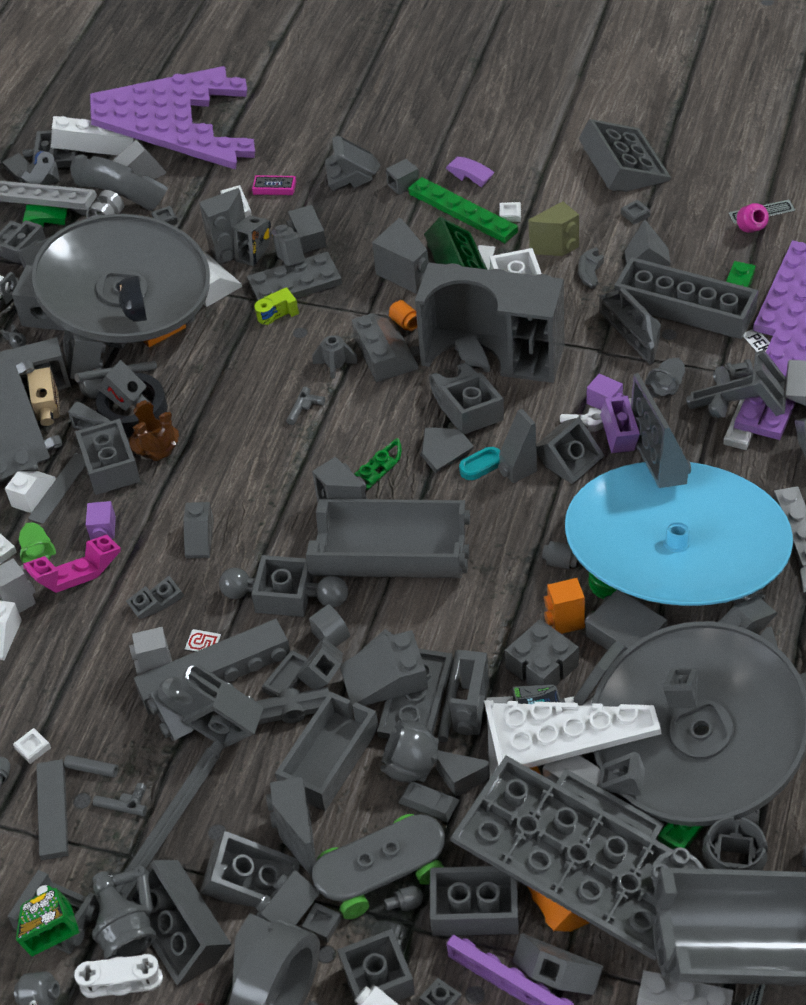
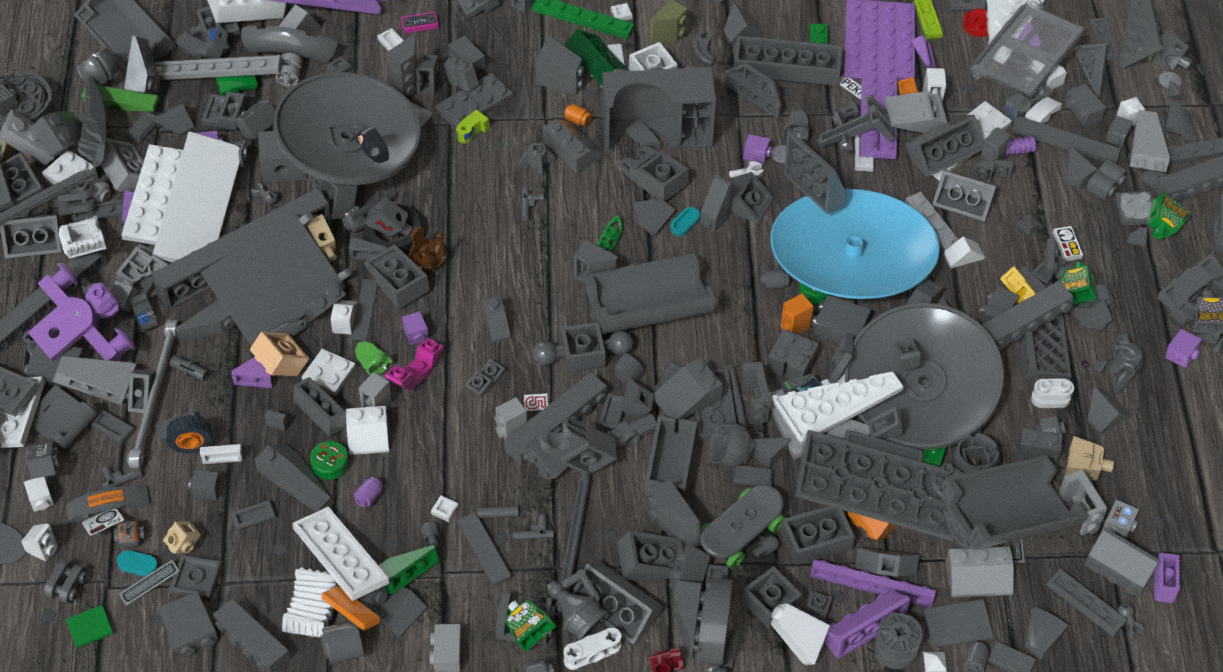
camera: 25 degrees left, 5 degrees up
(619, 424) = (779, 170): medium lavender brick -> none

